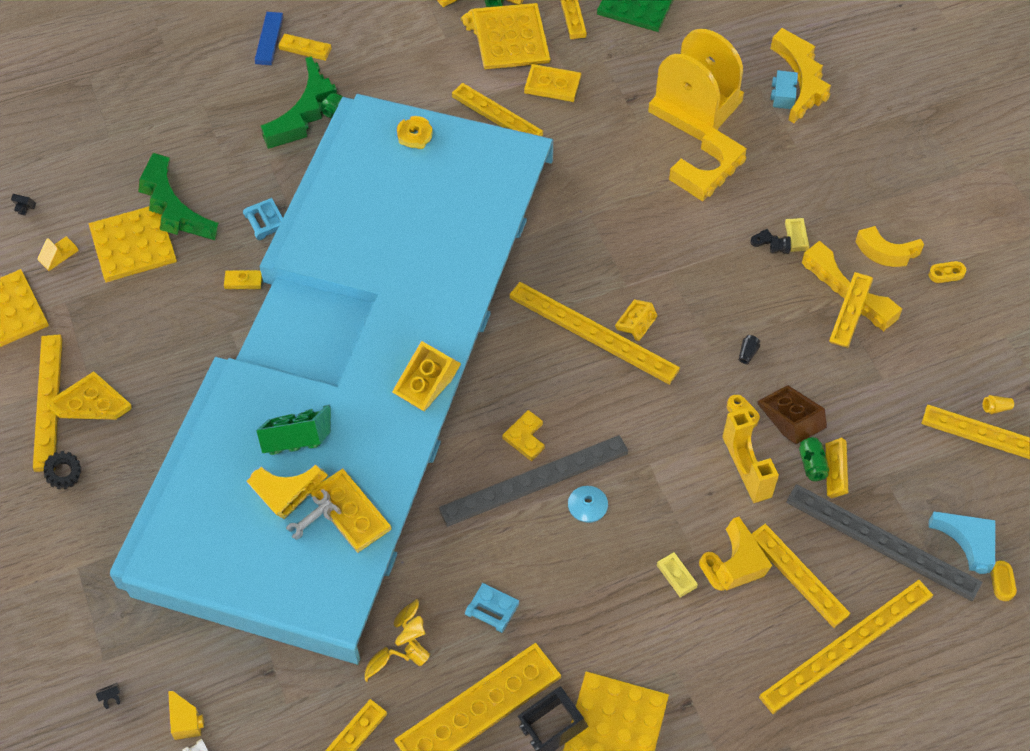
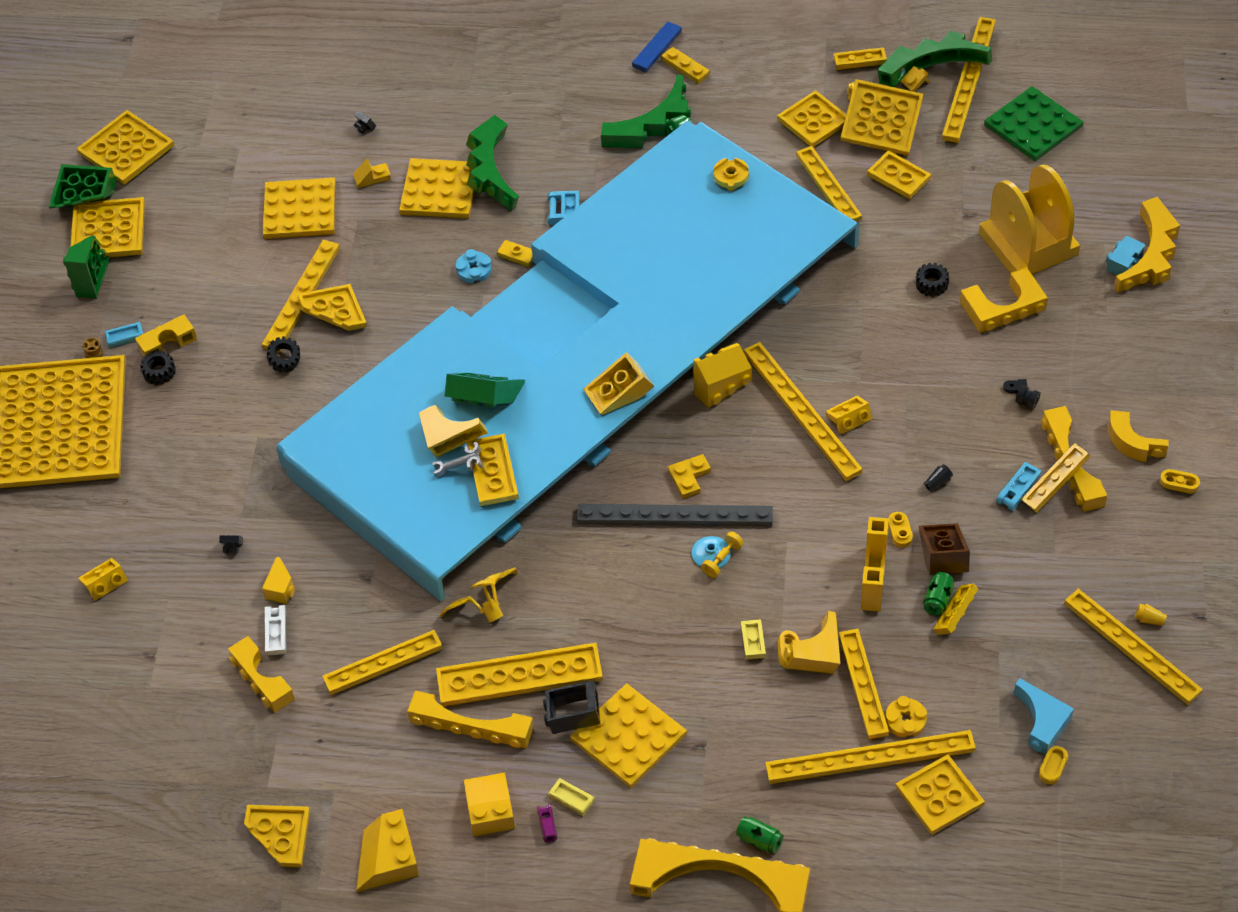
camera: 30 degrees right, 5 degrees down
(205, 299) = (473, 258): none -> medium azure plate
(449, 57) = (813, 118): none -> yellow plate
(495, 602) = (581, 598): medium azure plate -> none
(506, 328) = (720, 374): none -> yellow wedge
(604, 484) = (734, 541): none -> yellow wheel
(636, 175) = (932, 271): none -> black tyre
(797, 231) = (1052, 394): light yellow tile -> none
(820, 329) = (1019, 486): none -> medium azure plate
(861, 583) = (909, 707): none -> yellow plate
(884, 542) = (960, 689): dark grey plate -> none
(928, 655) = (939, 794): none -> yellow plate

